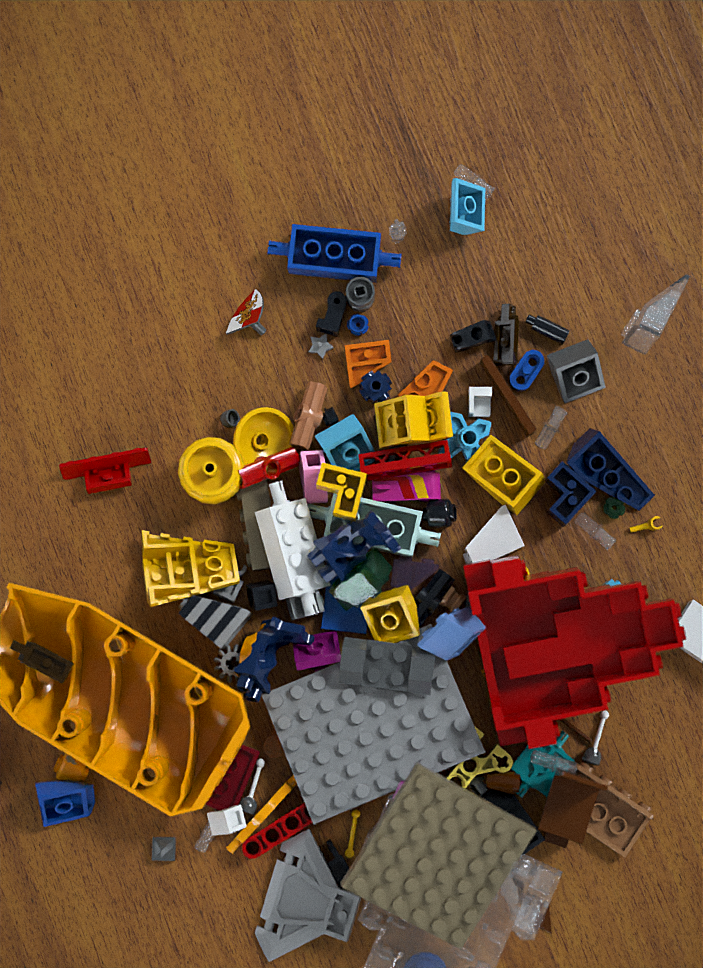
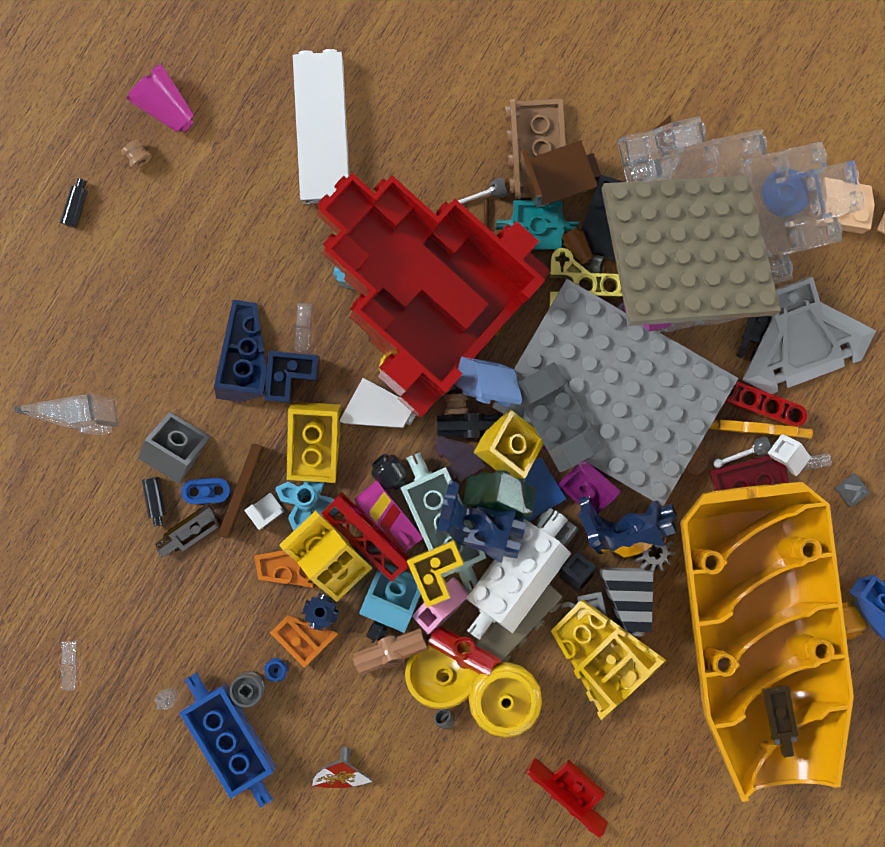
camera: 125 degrees left, 5 degrees up
(320, 346) = (319, 688): light grey piece -> none
(336, 309) = (283, 697): black leg -> none
(350, 852) = (734, 331): yellow hinge -> none
(467, 207) = (97, 653): medium azure slope -> none
(473, 336) = (210, 560): black leg -> none
(550, 427) = (241, 432): clear axle -> none
(553, 762) = (529, 214): clear axle -> none
(608, 510) = (270, 332): clear green plate -> none
(648, 525) = (265, 287): yellow hand -> none

